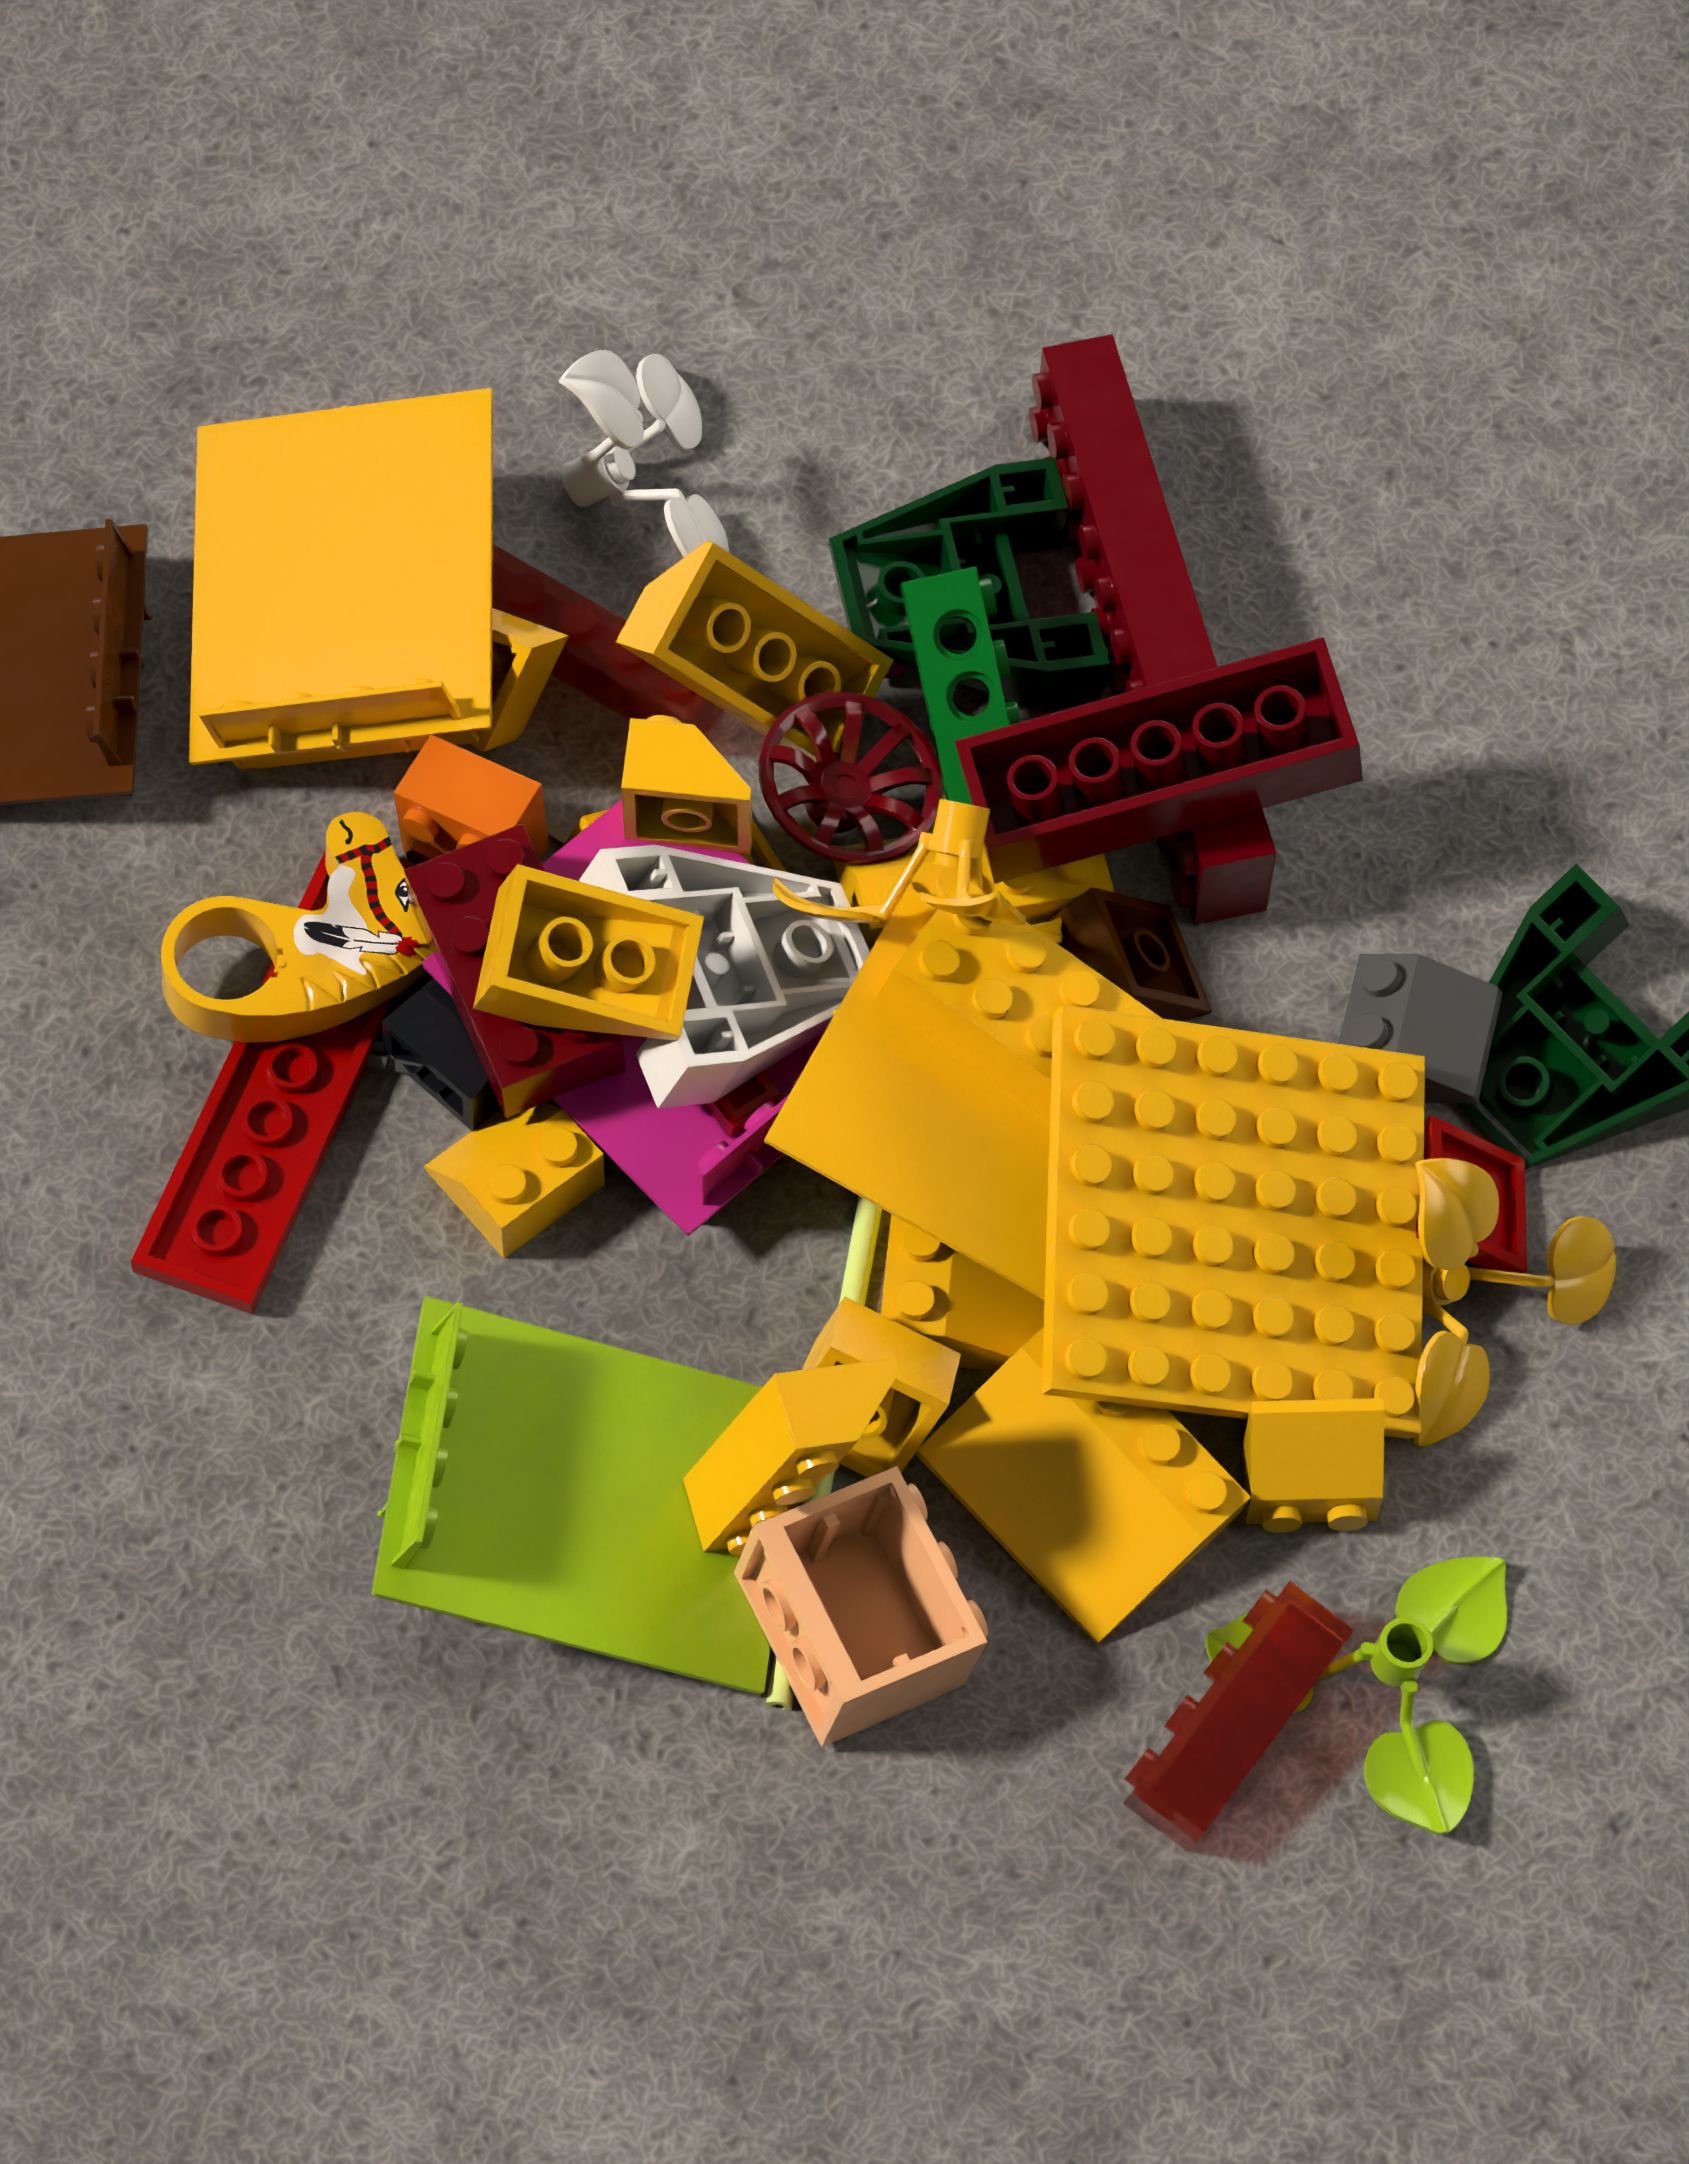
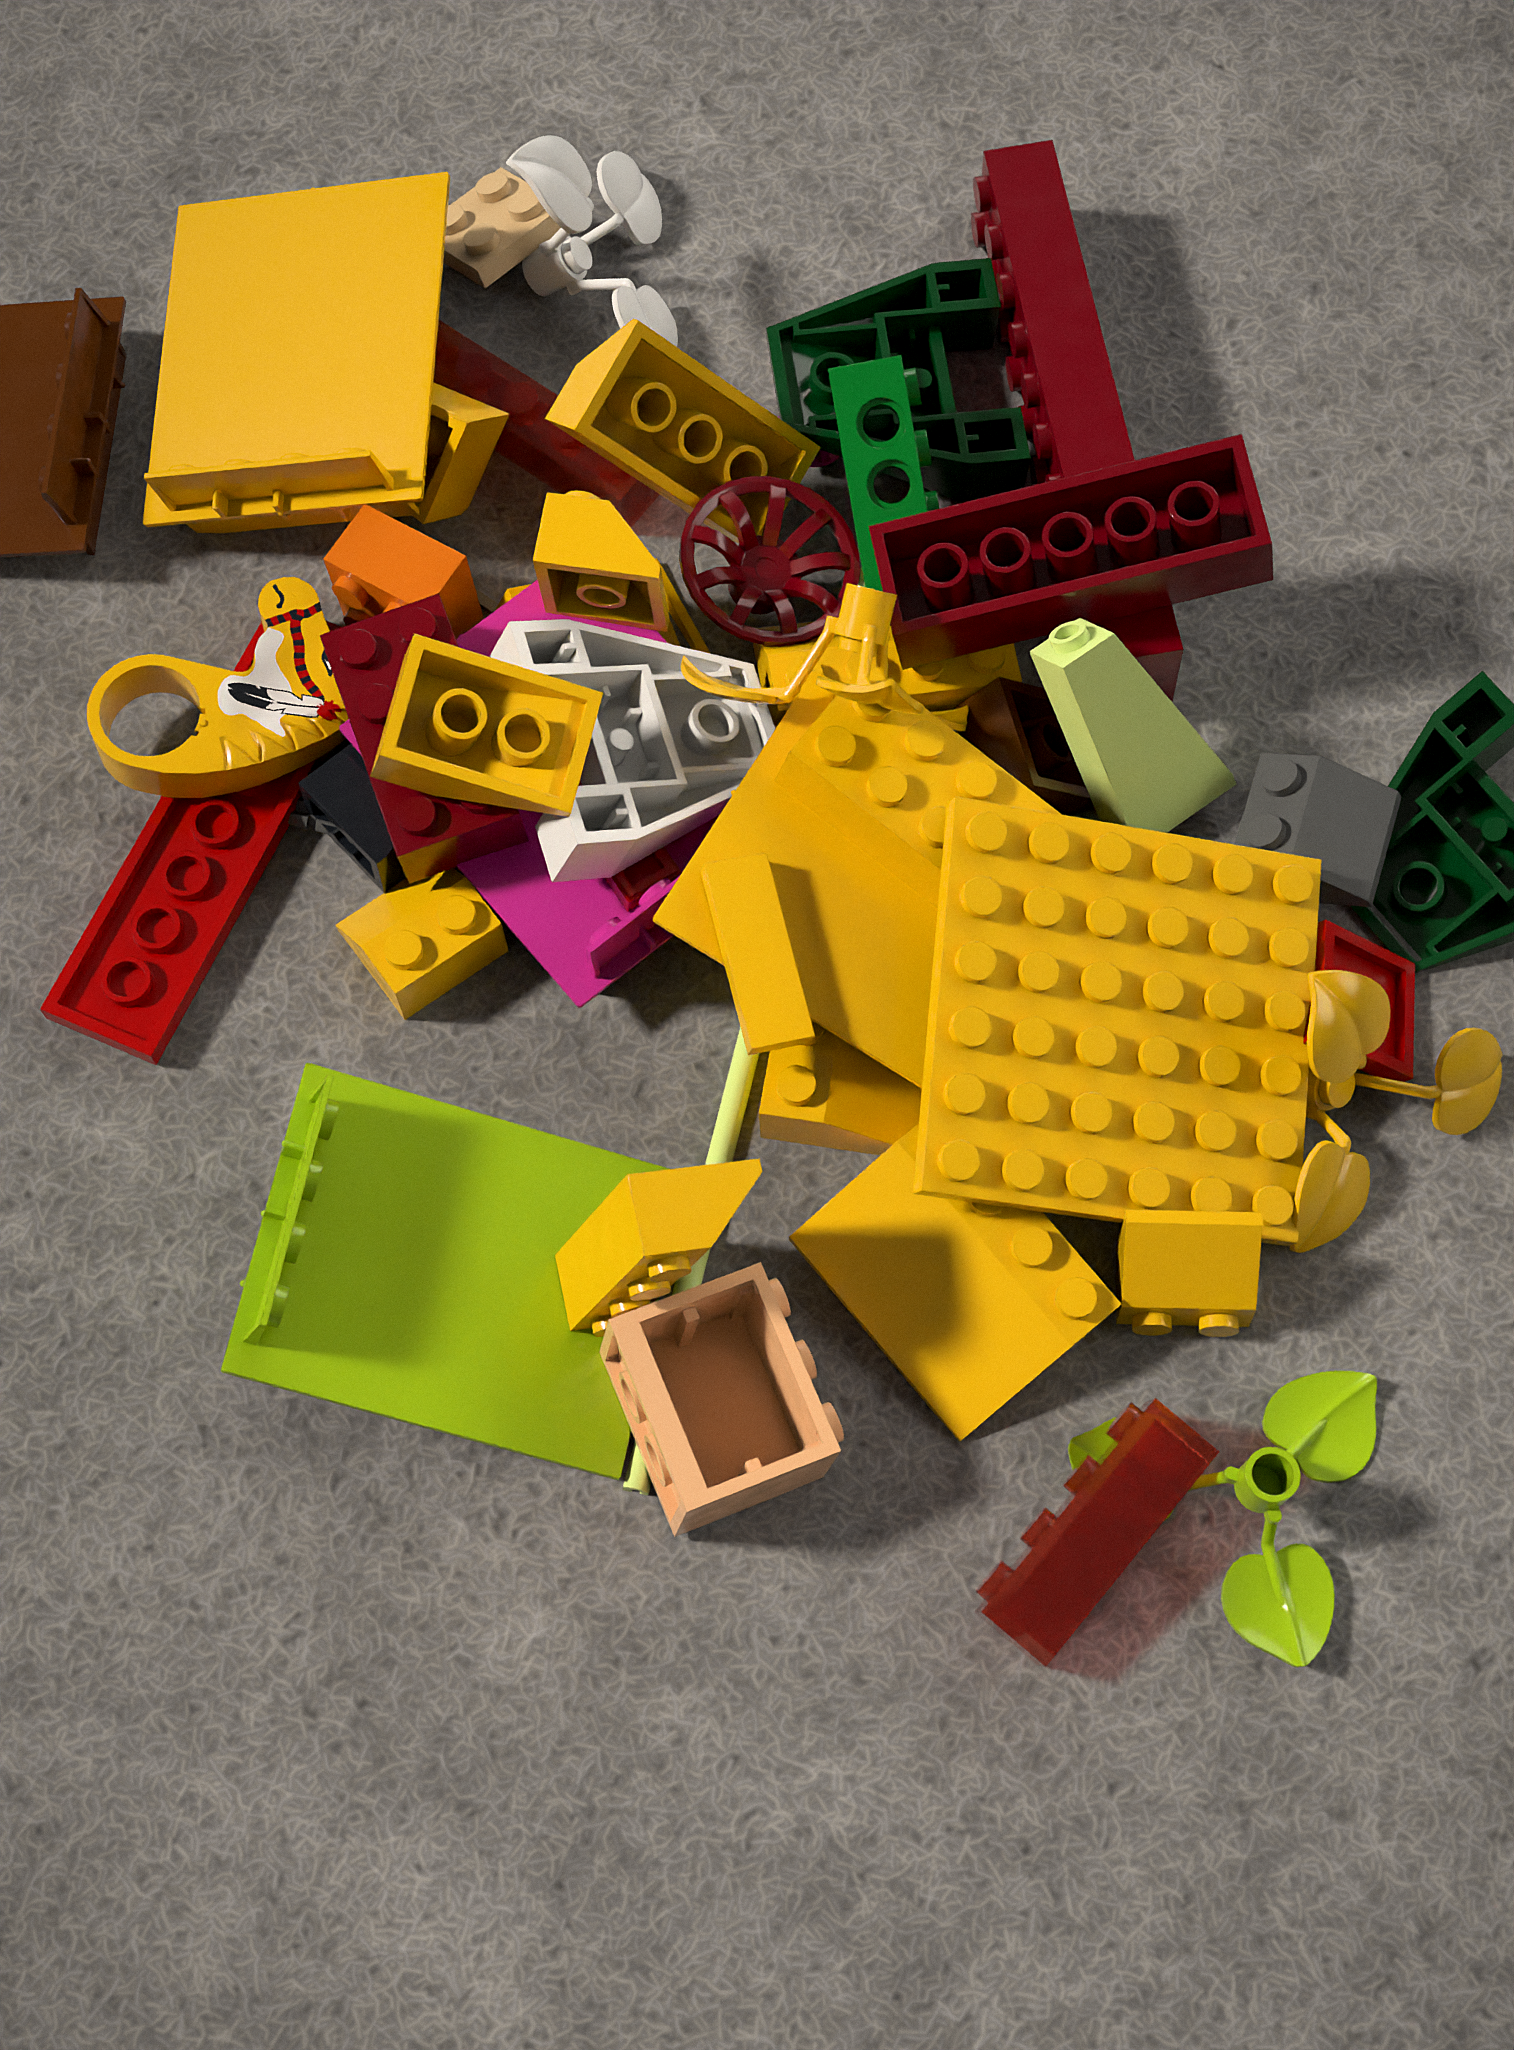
camera: 10 degrees right, 5 degrees up
(537, 435) = (495, 227): none -> tan plate
(871, 1168) = (757, 953): none -> yellow tile
(914, 1398) = (792, 1163): yellow slope -> none
(1222, 938) = (1124, 732): none -> yellowish green slope

